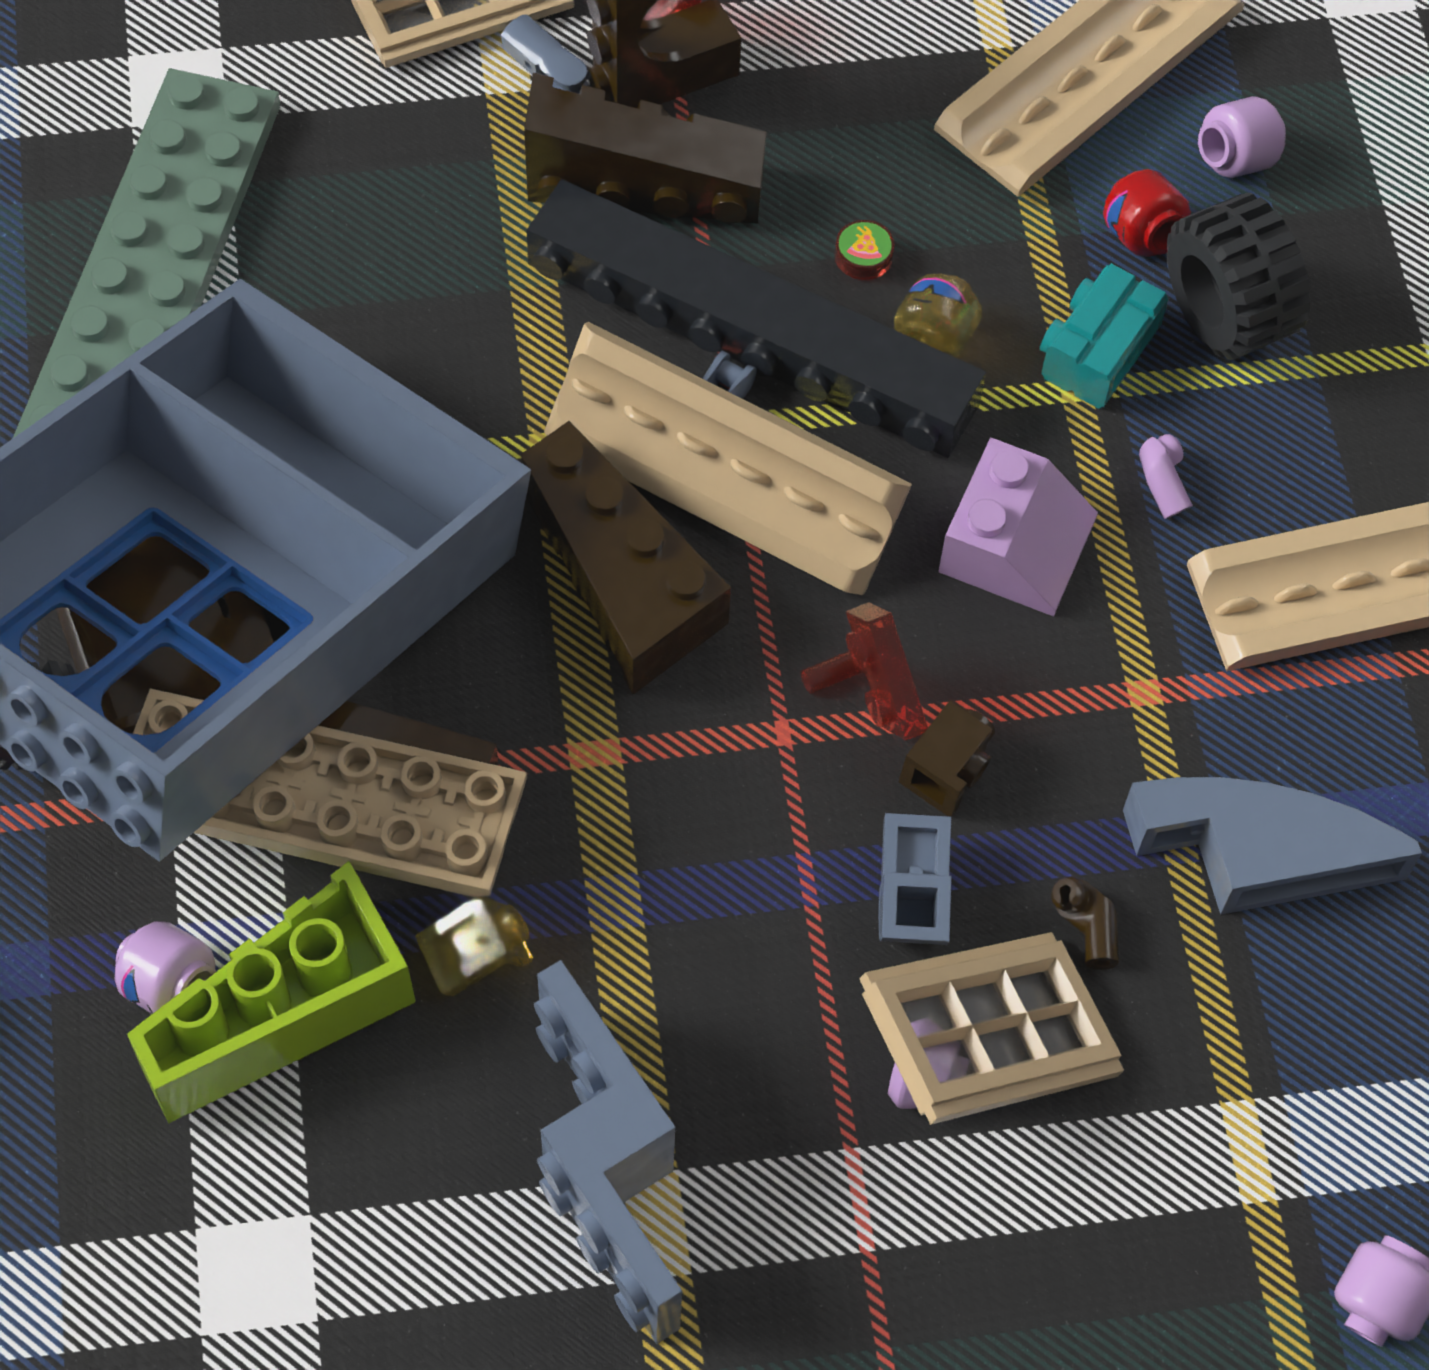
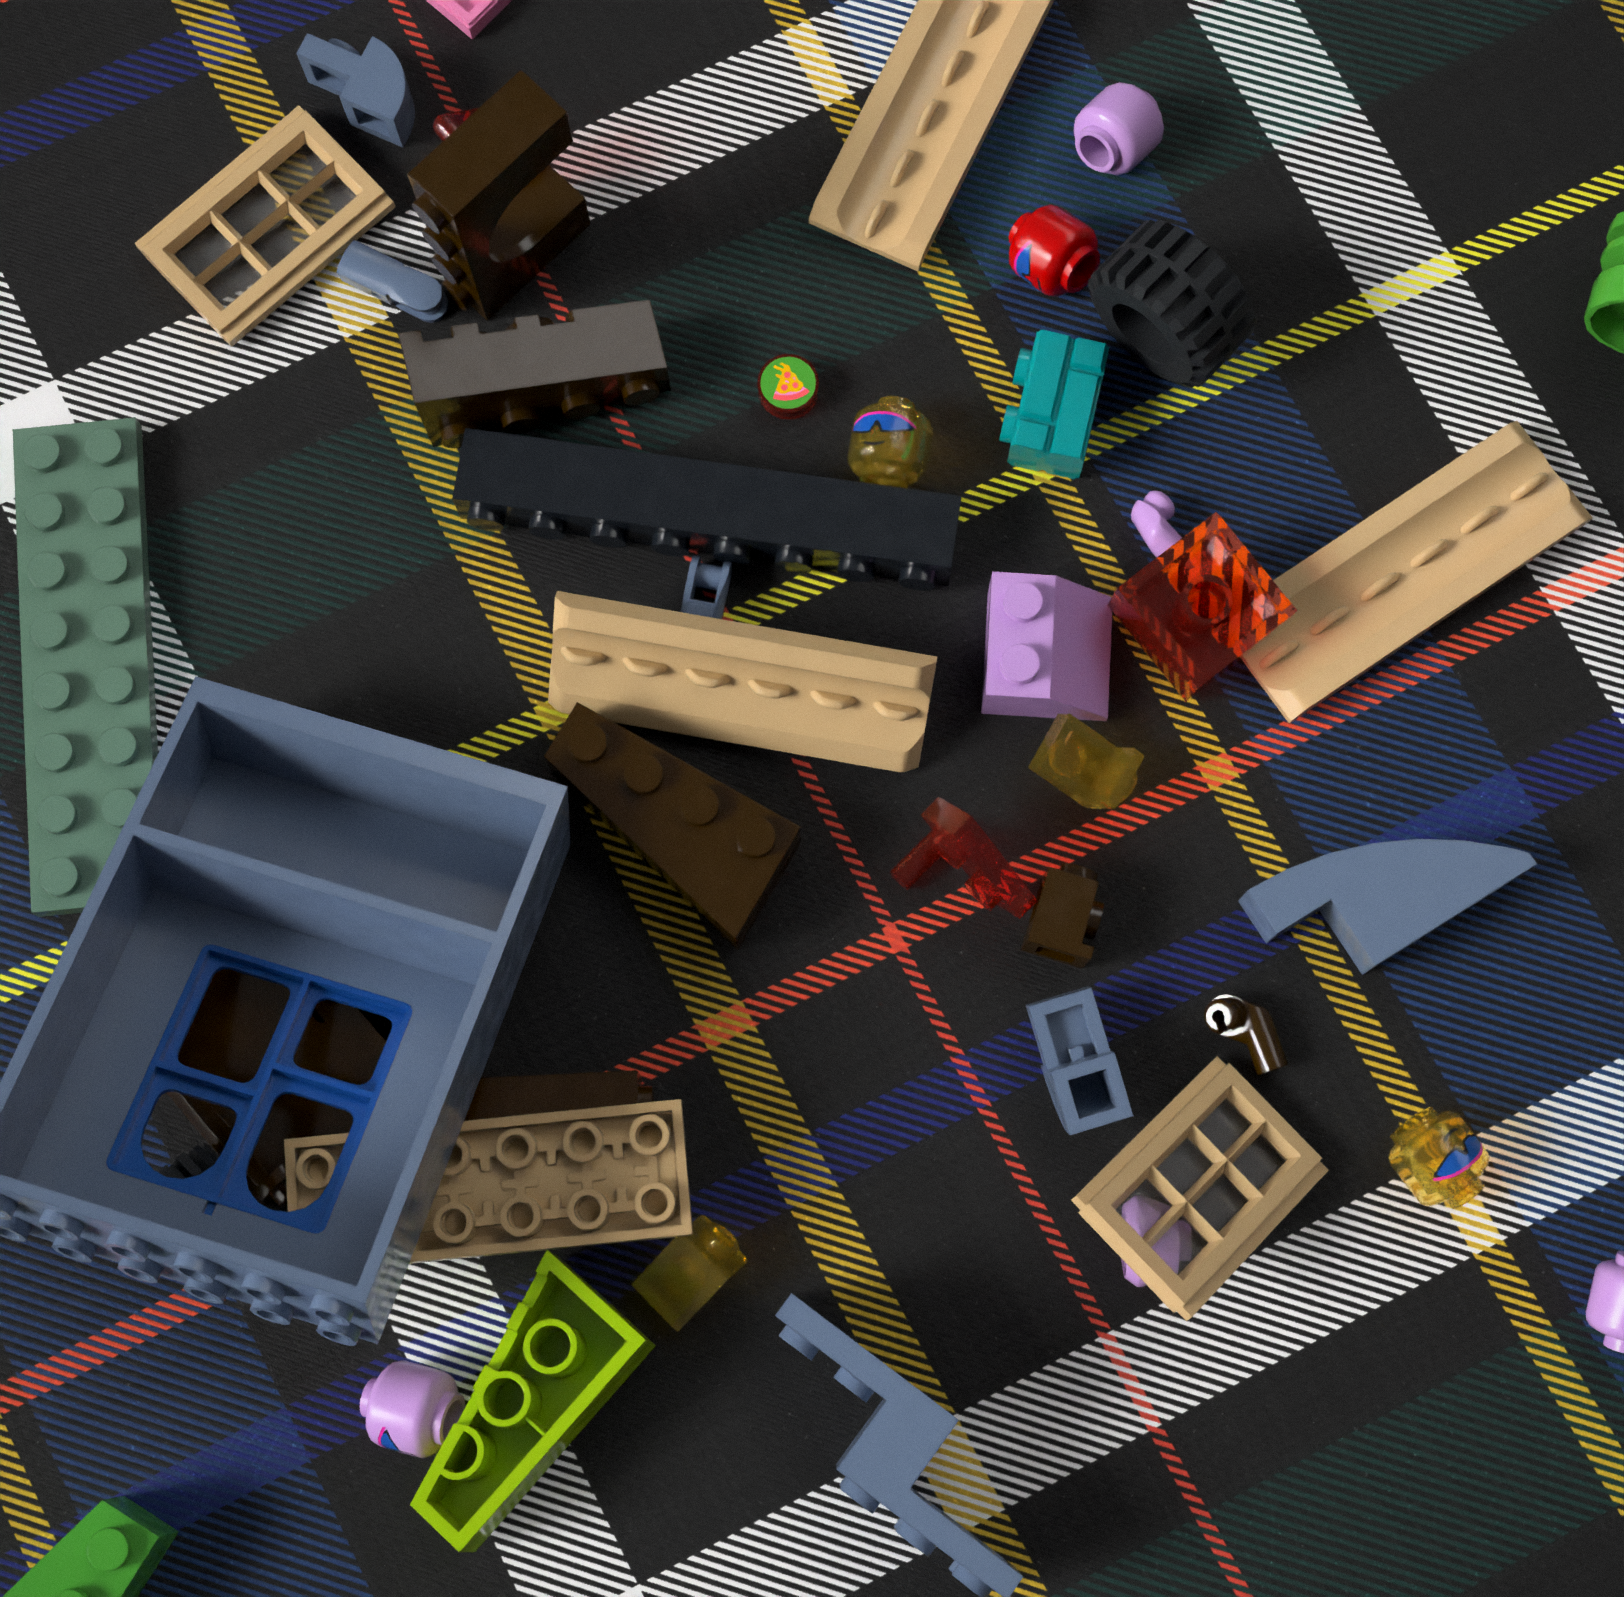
camera: 15 degrees left, 15 degrees up
(1018, 636) = (1086, 764): none -> clear yellow bracket
(1174, 532) = (1201, 606): none -> clear red slope
(1235, 1089) = (1438, 1158): none -> clear yellow head

